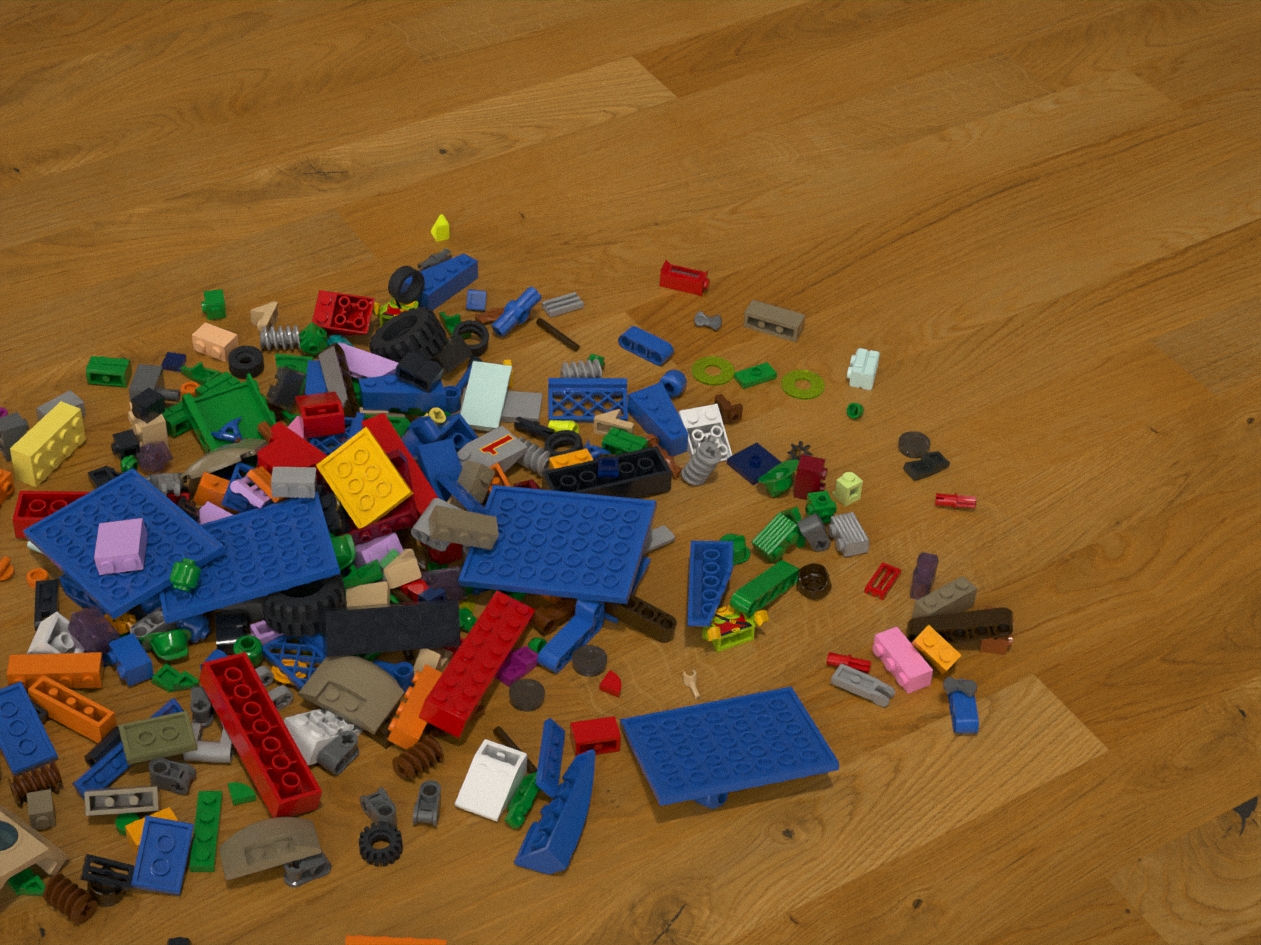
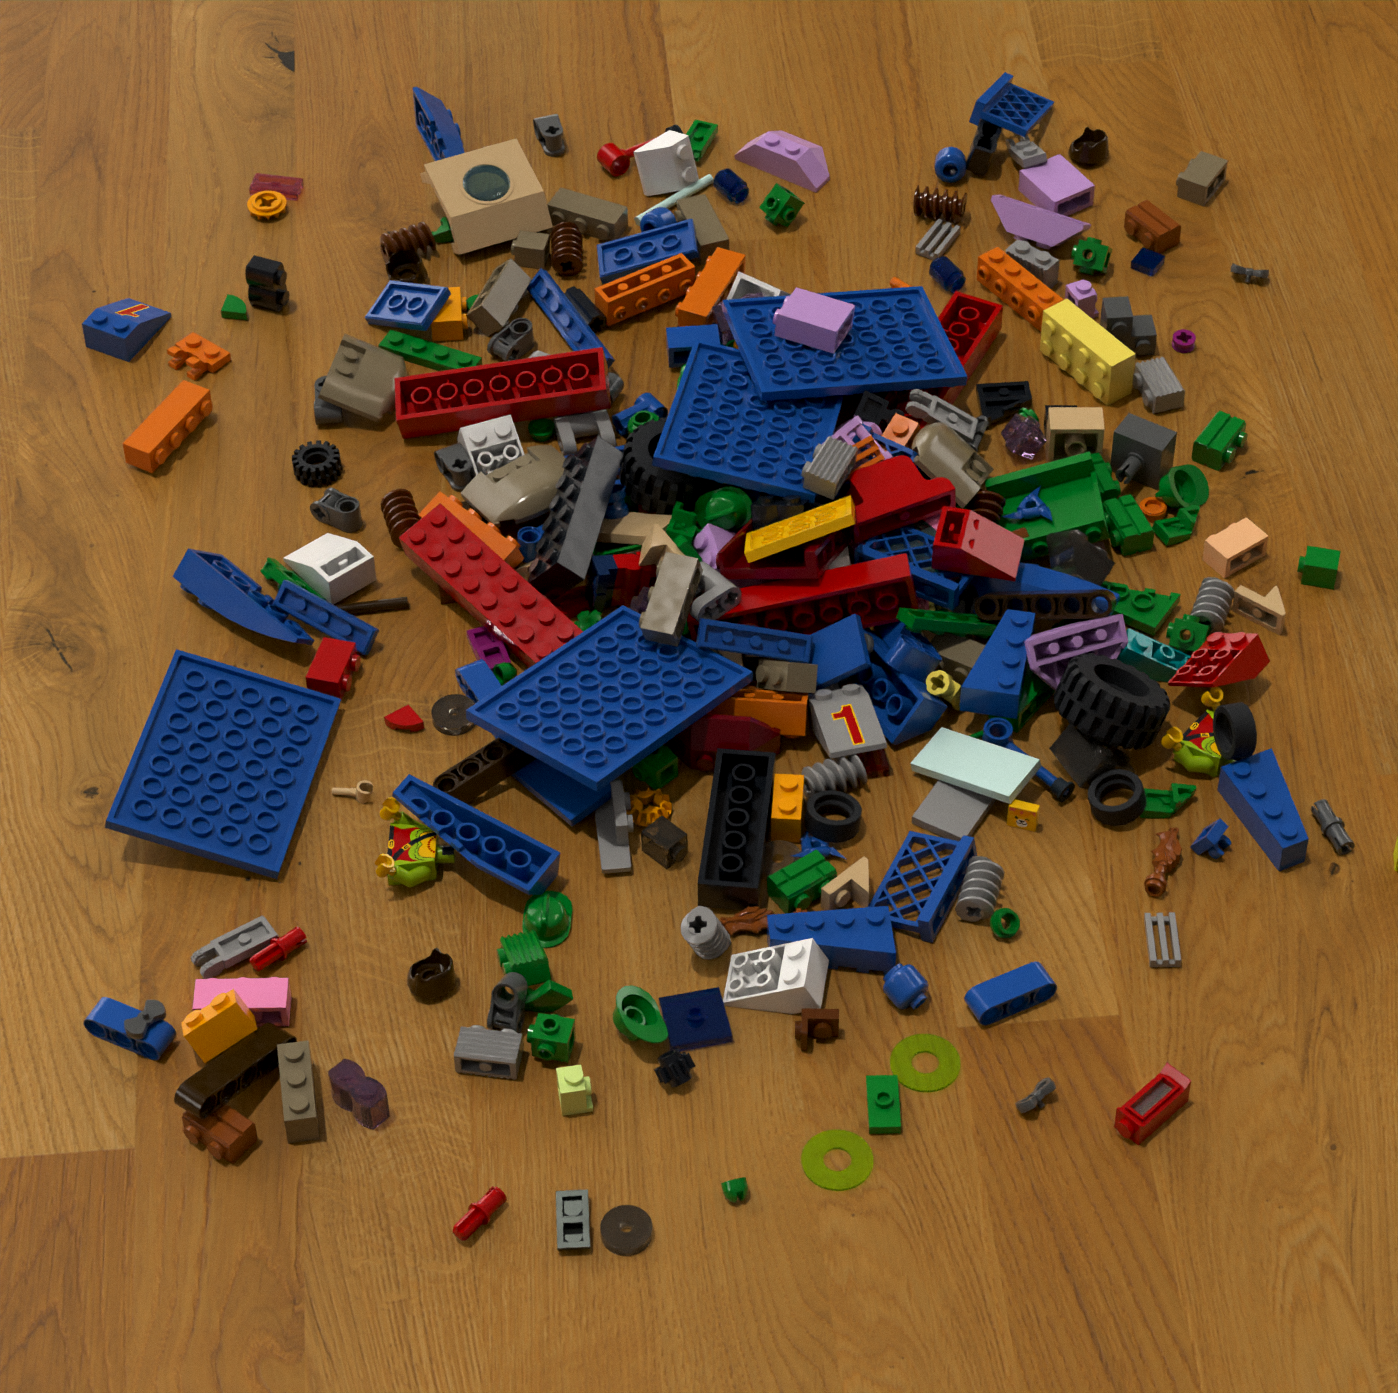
camera: 120 degrees right, 5 degrees up
(105, 872) = (410, 259): black tile -> none
(148, 405) = (1073, 409): black brick -> none
(157, 737) = (557, 327): olive tile -> none
(172, 680) = (654, 379): green slope -> none
(174, 361) = (1219, 508): clear blue tile -> none
(175, 376) = (1183, 487): none -> green piece
(185, 575) = (731, 351): green head -> none
(246, 354) = (1180, 580): black tyre -> none
(379, 807) = (357, 473): dark grey piece -> none
(419, 371) = (999, 656): black brick -> none
(516, 311) = (1145, 858): blue piece -> none
(526, 695) = (440, 643): clear smoke piece -> none
(533, 428) = (894, 805): black pin -> none
(557, 334) = (1094, 909): dark brown bar -> none
(559, 425) = (875, 835): neon yellow cone -> none
(608, 467) = (739, 815): clear blue tile -> none
(765, 588) = (440, 904): green beam -> none
(774, 320) = (991, 1177): dark tan brick -> none
(810, 476) = (607, 1041): dark red brick -> none
(864, 368) = (818, 1240): light aqua brick -> none
(877, 591) = (403, 1076): red tile -> none

